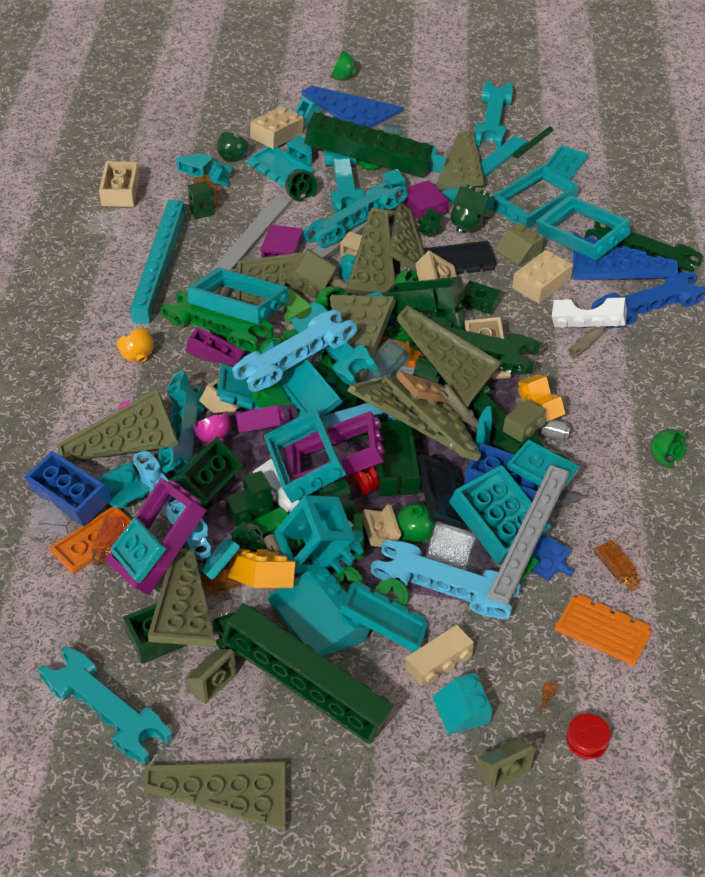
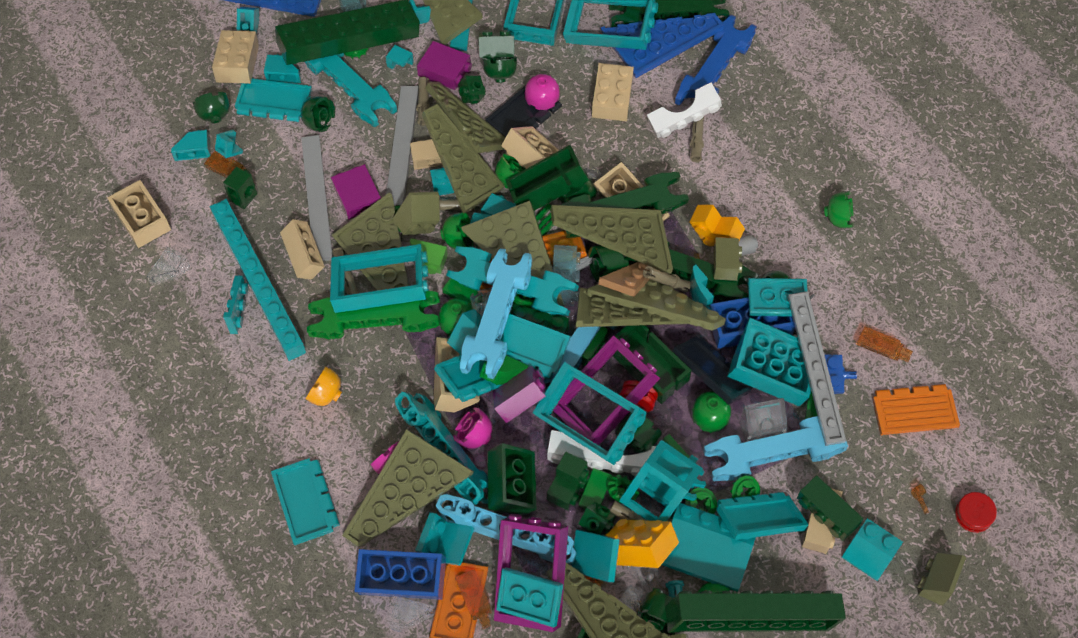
camera: 35 degrees left, 15 degrees up
(55, 410) = (303, 500): none -> teal hinge
(126, 267) = (233, 317): none -> teal wing
(207, 256) = (302, 249): none -> tan brick
(211, 348) = (396, 345): magenta slope -> none
(335, 227) = (391, 142): teal piece -> none
(381, 526) = (690, 433): tan bracket -> none
(446, 643) = (829, 508): none -> dark green brick
(481, 297) = (586, 142): dark green brick -> none
(484, 248) = (542, 92): none -> dark pink cylinder
(519, 244) = (567, 66): olive slope -> none

